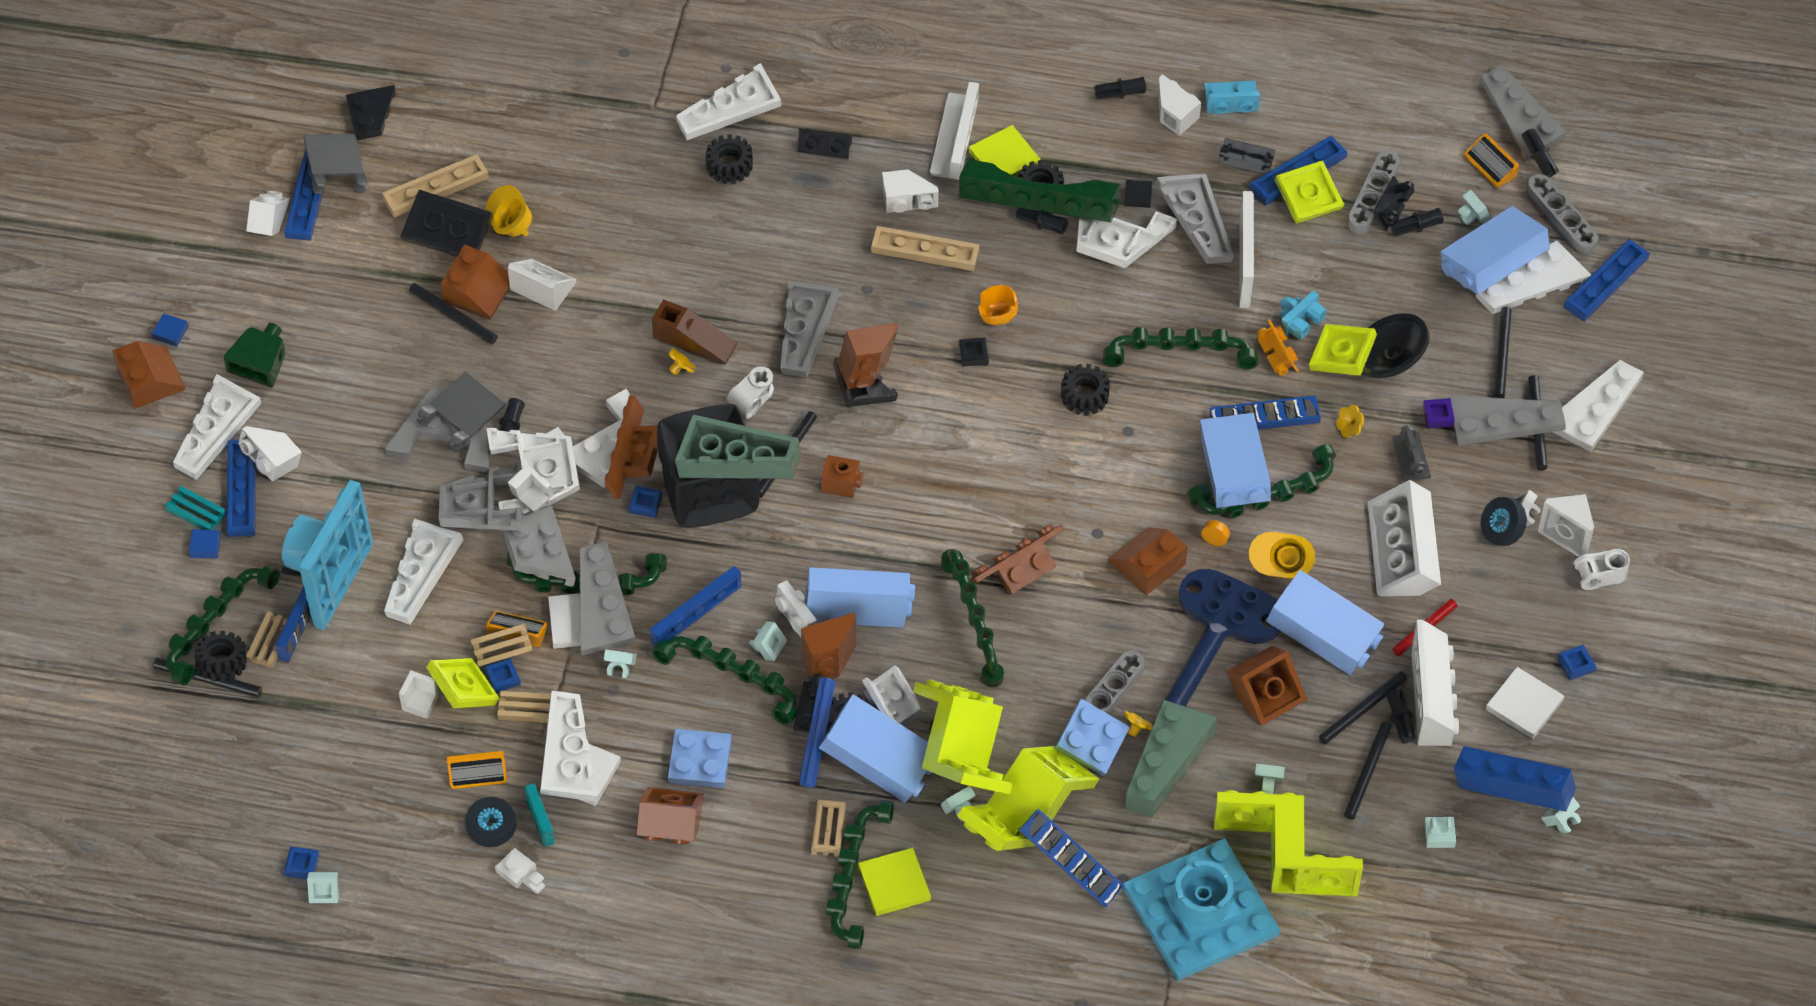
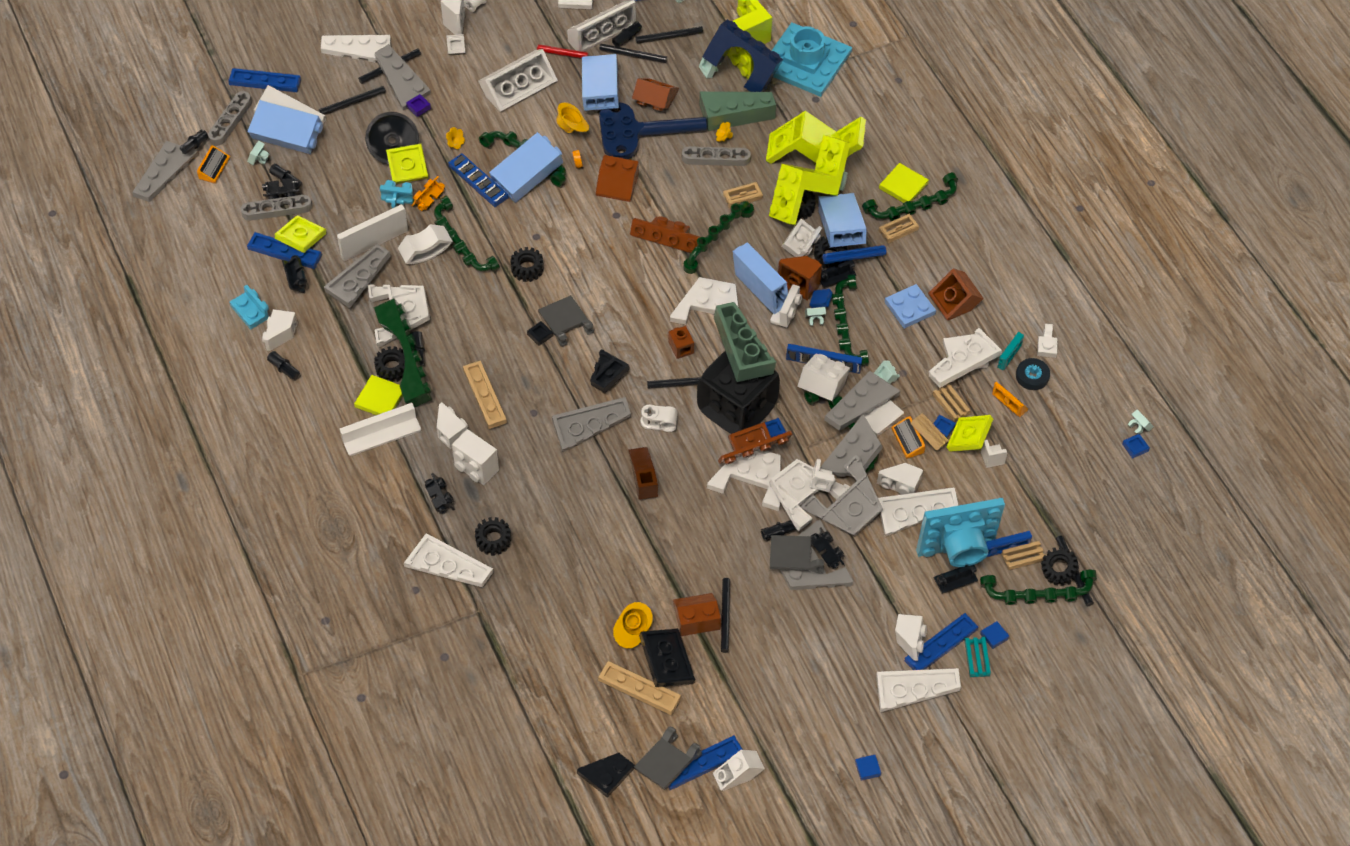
camera: 125 degrees left, 0 degrees up
(147, 372) = (911, 752): dark orange slope -> none
(257, 355) = (847, 697): dark green torso -> none
(439, 442) = (832, 554): none -> black hinge
(466, 579) = (900, 478): none -> white slope
(539, 282) = (665, 577): white slope -> none
(662, 577) = (823, 376): none -> white brick
(680, 362) = (666, 467): yellow plant -> none
(786, 662) = (821, 298): none -> blue tile
(837, 183) = (475, 457): none -> white brick
(865, 354) = (597, 359): dark orange slope -> none
(886, 550) = (704, 297): none -> white wing
(976, 387) = (564, 316): none -> dark grey flag
(998, 305) = (502, 332): light orange hair -> none
(1016, 705) = (750, 196): none -> tan tile
(1071, 857) = (832, 109): tile -> none
(1092, 737) = (751, 143): light blue plate -> none
(1138, 193) = (360, 316): black tile -> none
(1194, 300) = (425, 244): none -> white brick
(1231, 790) = (765, 61): none -> dark blue arch
(1411, 454) = (456, 104): dark grey hinge -> none
(1493, 518) = (481, 42): black bush -> none

